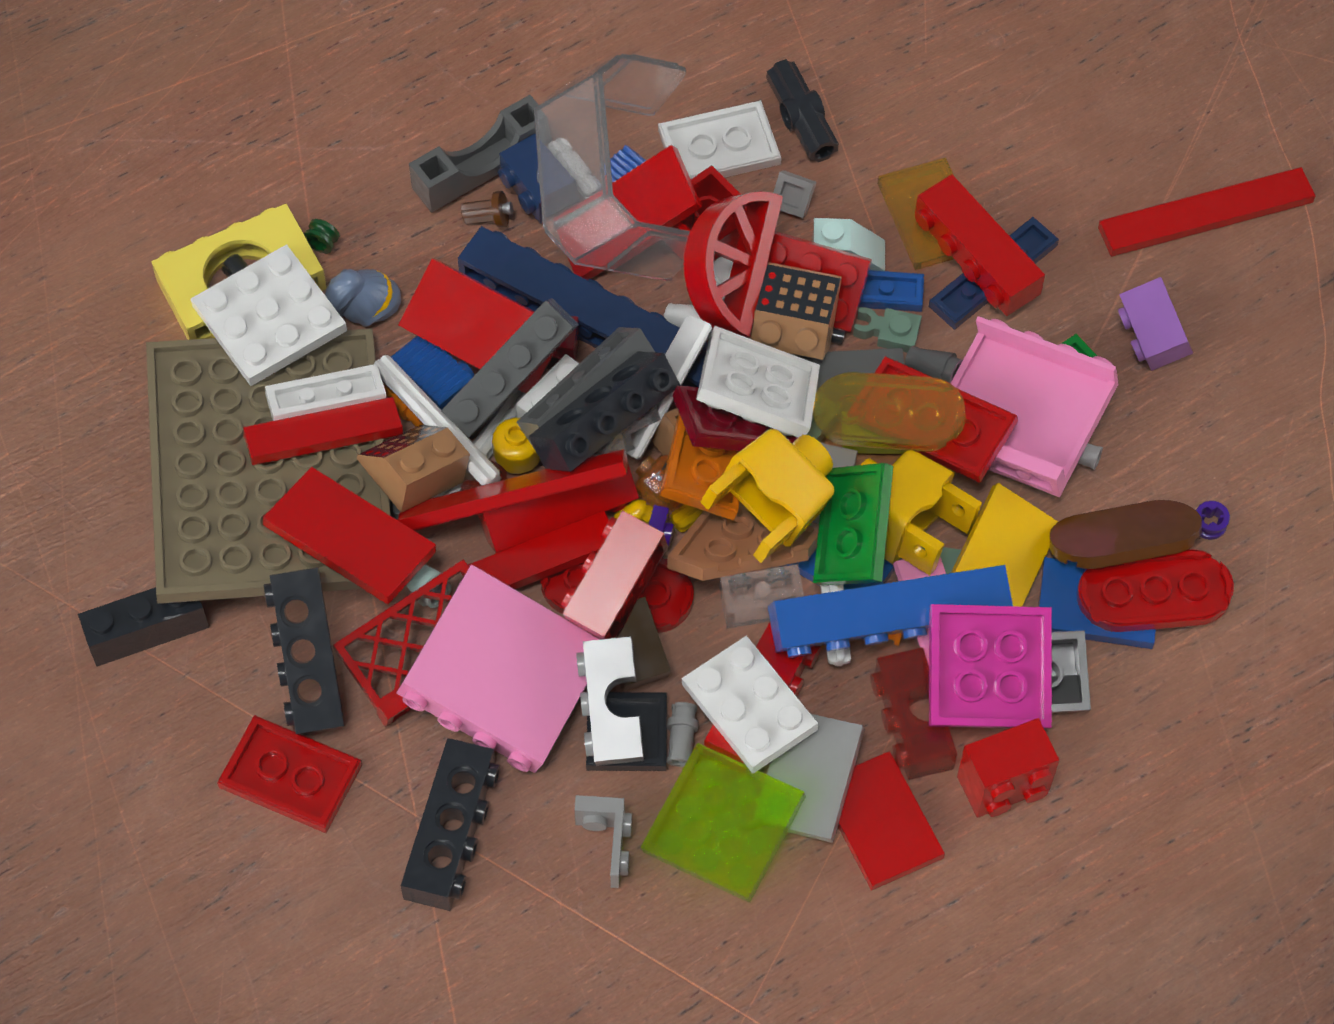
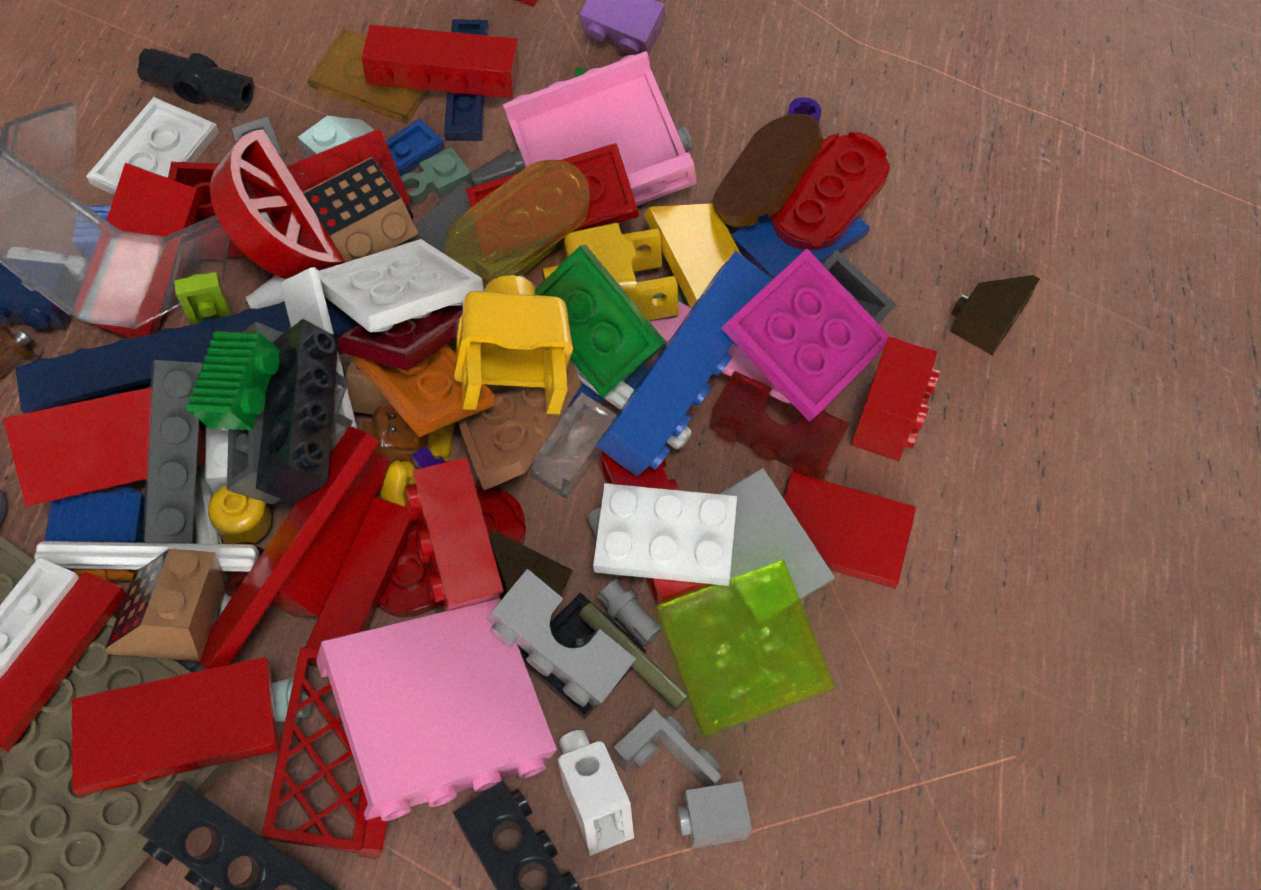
camera: 50 degrees left, 0 degrees up
(537, 811) = (594, 792): none -> white torso
(582, 355) = (234, 380): none -> green brick
(594, 896) = (714, 815): none -> light grey brick
(634, 281) = (202, 297): none -> lime plate
(652, 759) = (643, 664): none -> olive bar
(1168, 784) = (992, 310): none -> dark brown slope

